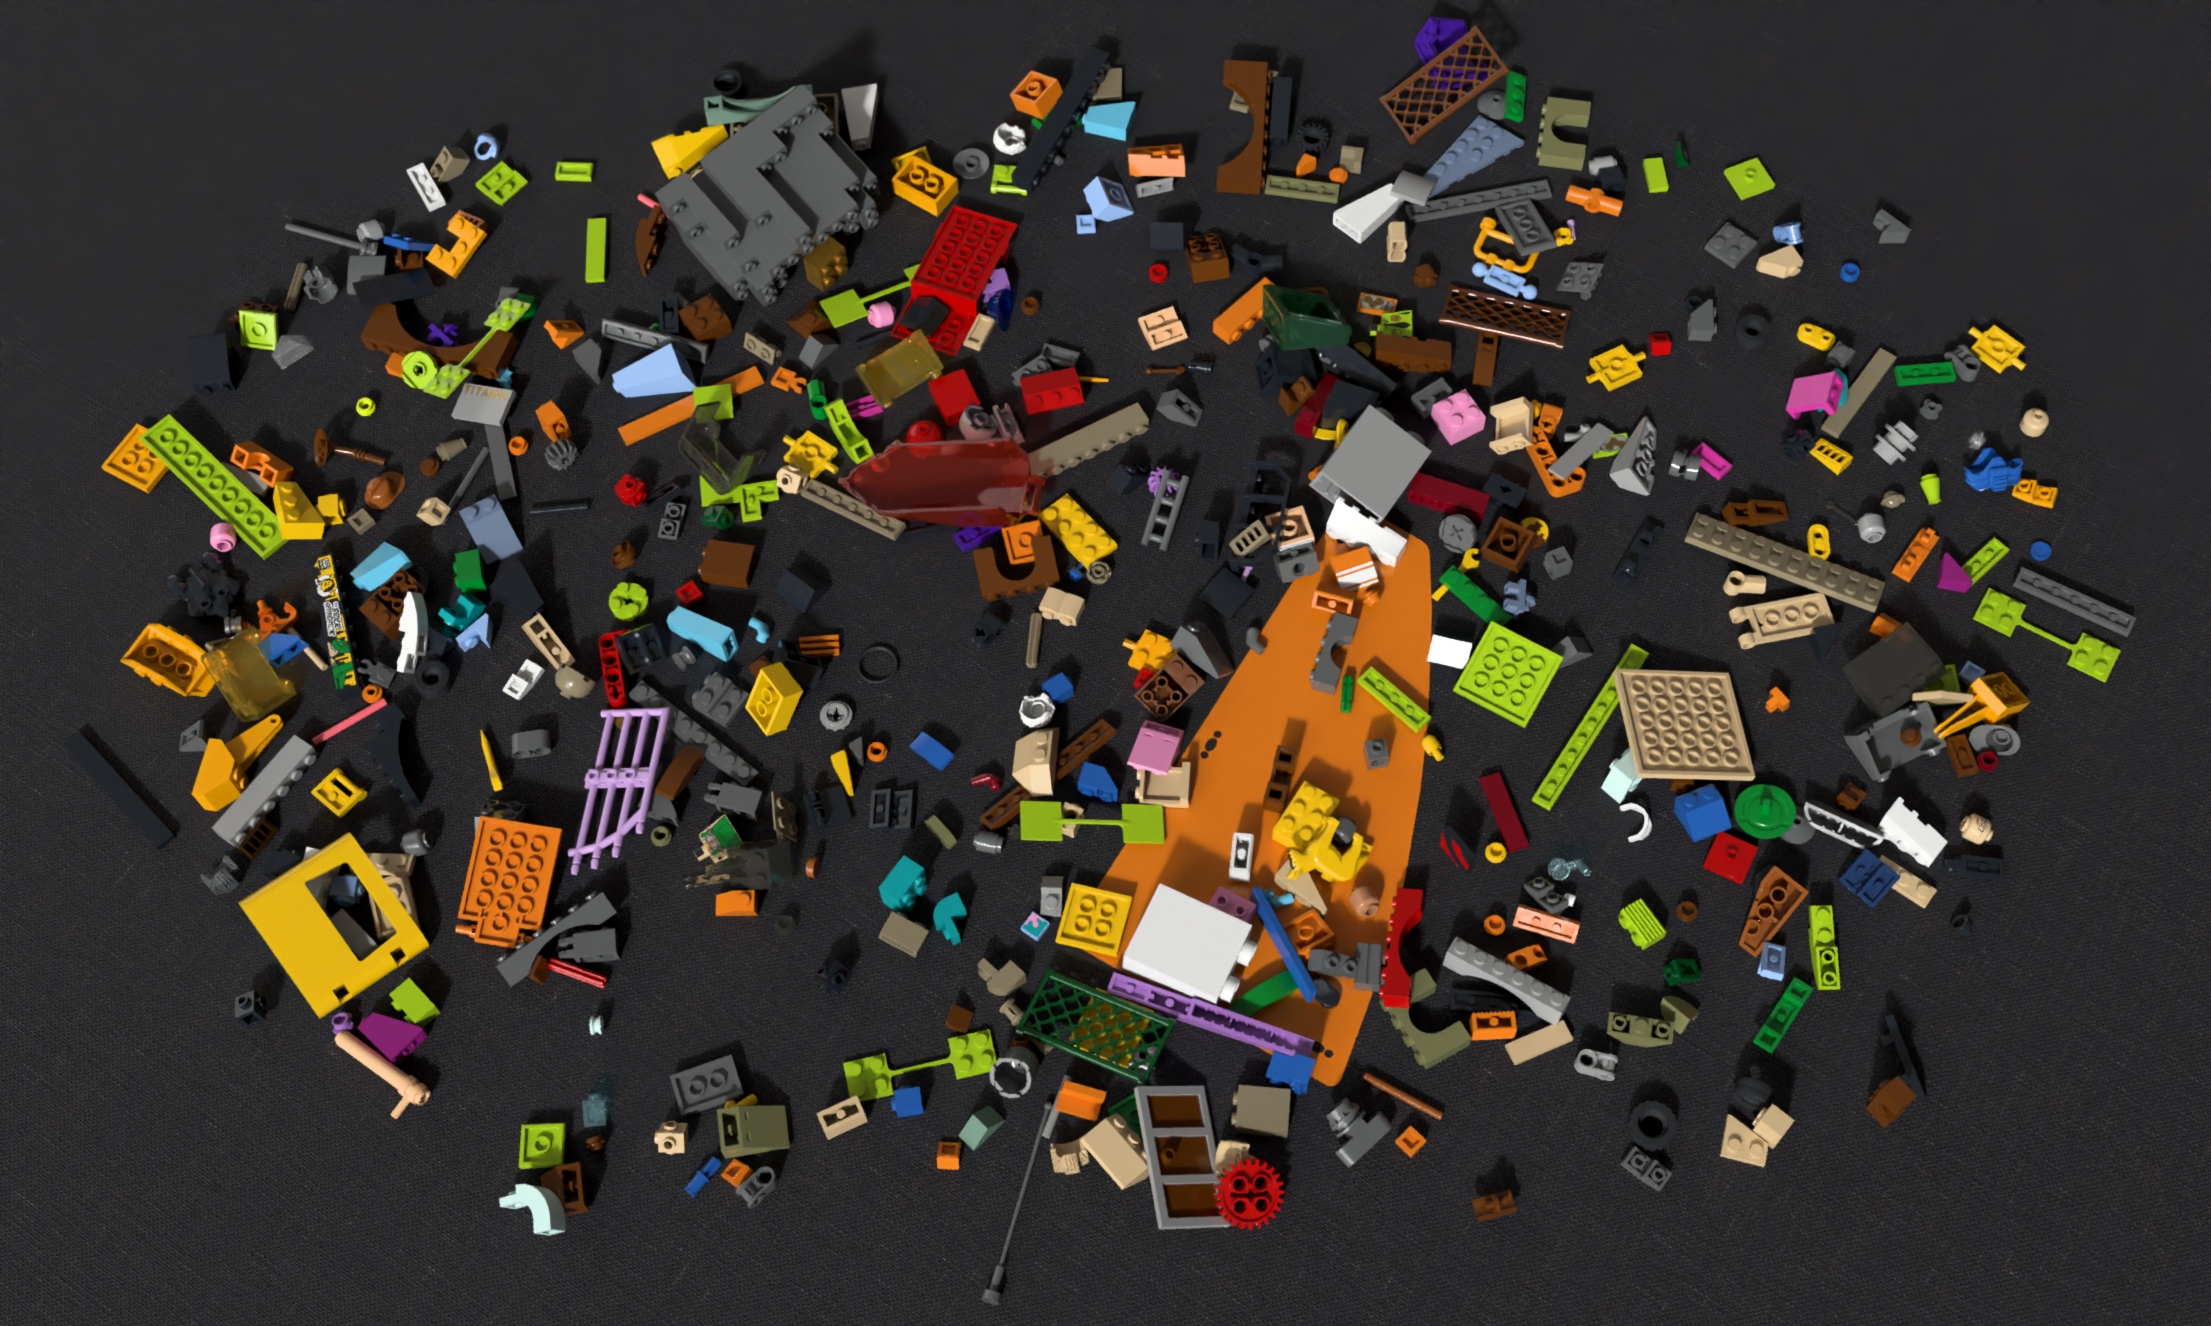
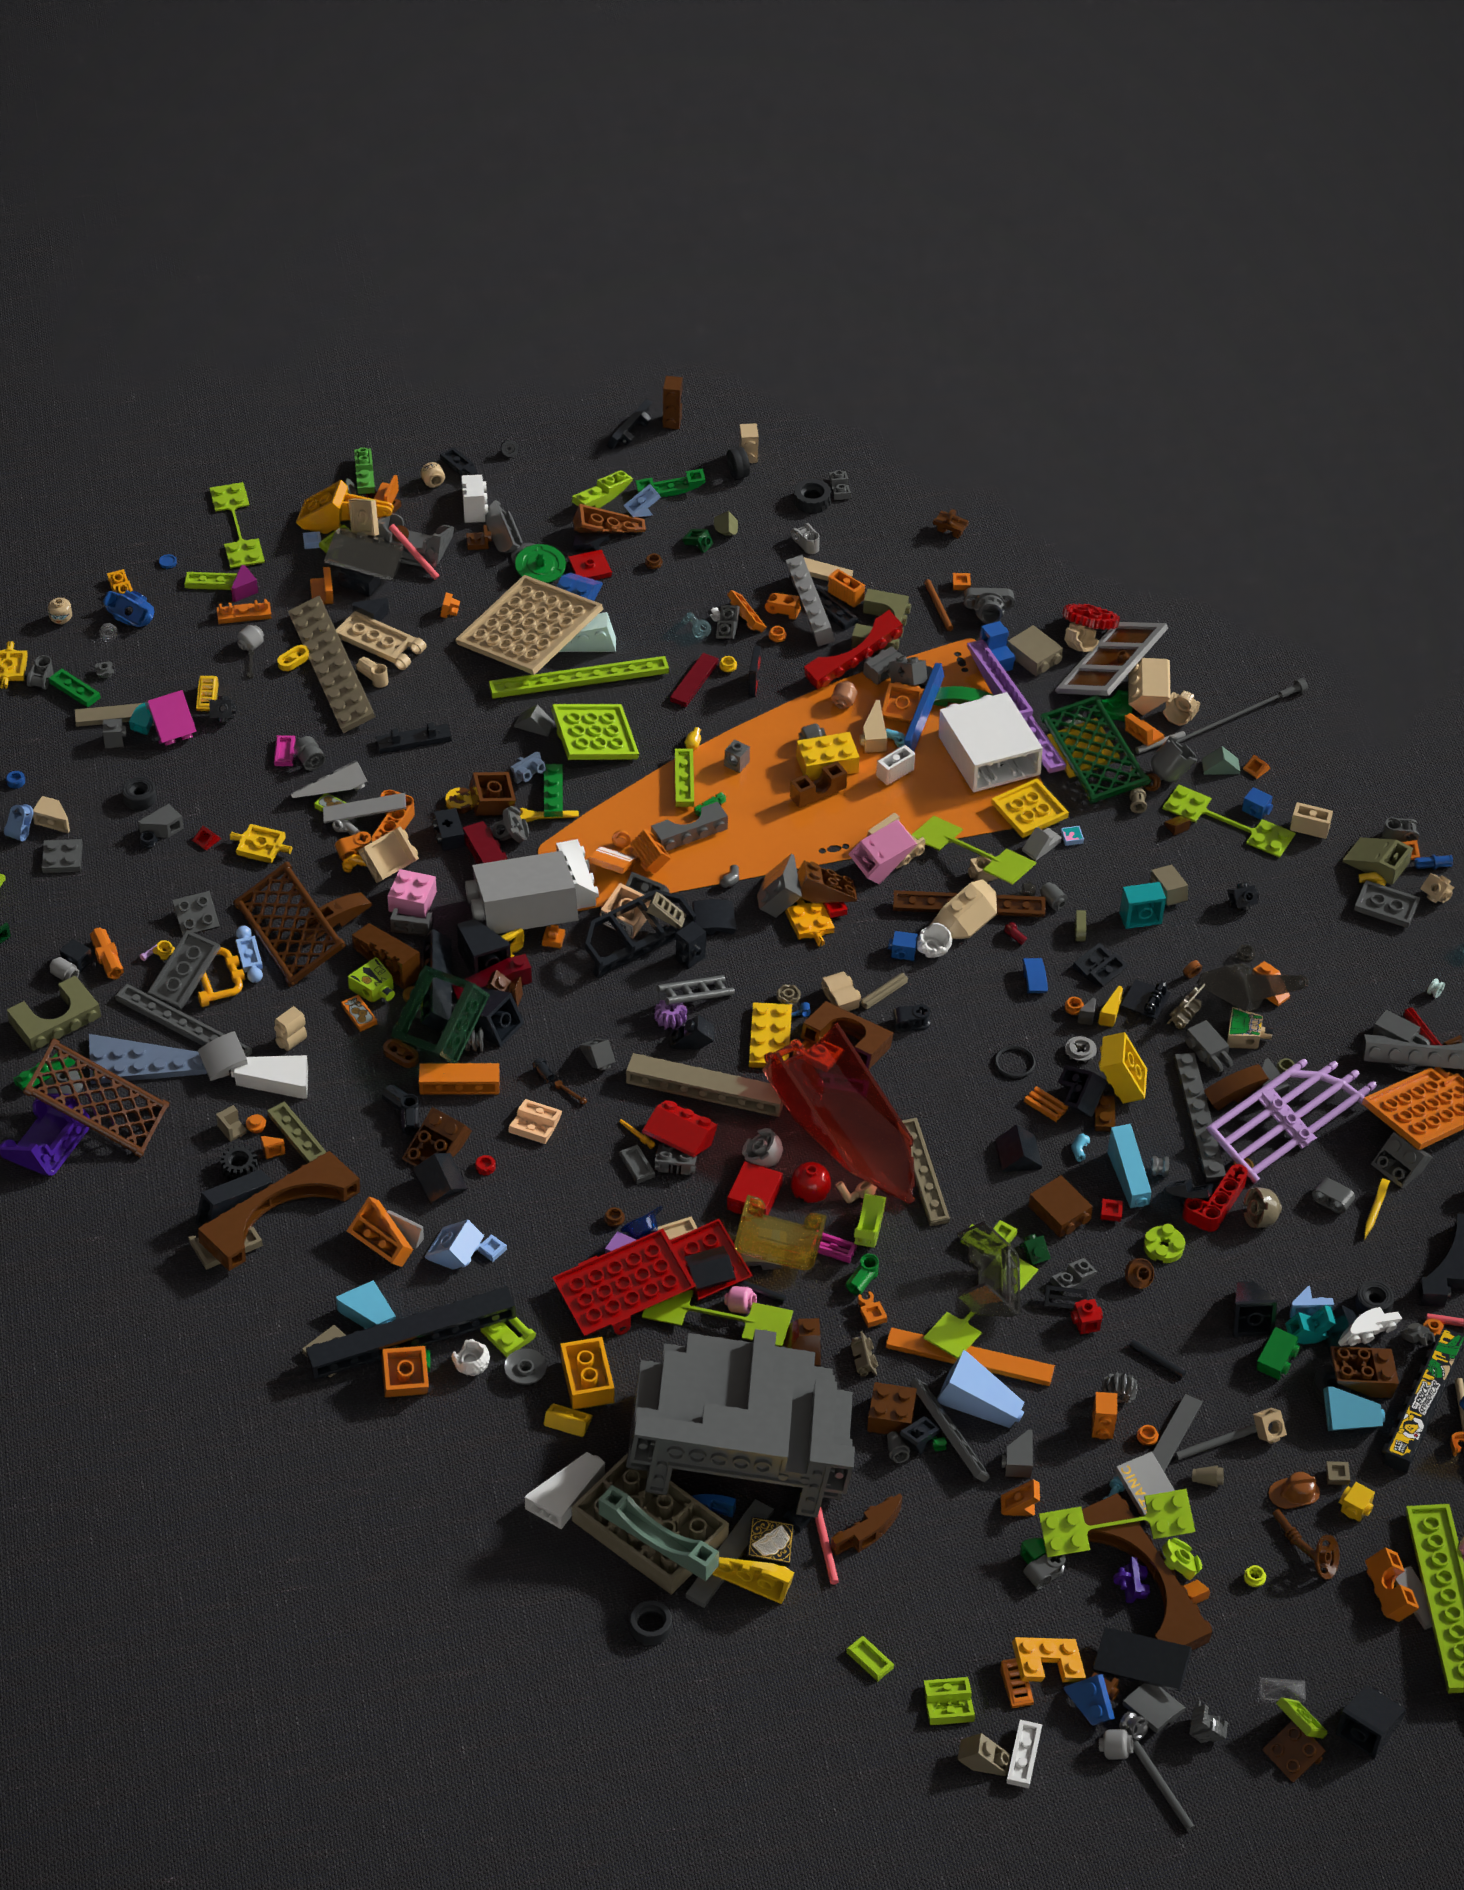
camera: 140 degrees left, 15 degrees down
(296, 286) = (1231, 1751): dark tan axle -> none
(296, 513) = (1394, 1513): yellow wedge -> none
(429, 467) = (1239, 1477): reddish brown plate -> none
(490, 530) = (1231, 1382): sand blue slope -> none
(493, 150) = (922, 1748): light blue piece -> none
(524, 680) = (1302, 1249): white slope -> none
(547, 641) = (1258, 1258): tan slope -> none
(596, 250) = (921, 1561): lime tile -> none
(719, 699) = (1157, 1122): dark grey plate -> none
(792, 478) = (947, 1225): tan brick -> none
(811, 454) = (913, 1238): yellow plate -> none
(817, 349) = (828, 1315): dark grey slope -> none
(946, 914) = (1125, 876): teal brick -> none
(1002, 982) = (1126, 818): dark tan brick -> none
(1007, 423) = (733, 1148): light grey hinge -> none
(1096, 781) = (941, 876): blue slope -> none
(1233, 904) = (934, 749): bright pink brick -> none
(1326, 859) = (841, 721): yellow animal -> none
(1425, 276) = (300, 999): reddish brown plate -> none
(1450, 648) = (604, 779): slope -> none
(1557, 563) = (474, 761): dark grey brick -> none
(1640, 1030) = (760, 528): olive slope -> none
(1642, 924) = (690, 571): lime brick -> none
(1647, 822) = (628, 610): white helmet -> none
(1655, 175) = (35, 939): lime tile -> none
(1742, 1143) = (771, 459): tan wing -> none
(1754, 513) = (307, 700): reddish brown slope -> none
(1816, 336) = (102, 762): yellow plate -> none
(1869, 719) = (413, 551): none -> coral bar
(1869, 878) = (528, 498): dark blue slope -> none
(1892, 499) = (209, 647): dark tan piece -> none
(1895, 442) = (163, 658): light grey piece -> none
(1910, 885) = (508, 489): tan plate -> none
(1931, 488) = (177, 632): lime cone -> none
(1973, 760) = (388, 492): none -> orange panel
(2031, 781) = (364, 471): none -> bright green slope
(2074, 602) = (196, 523): dark grey plate -> none

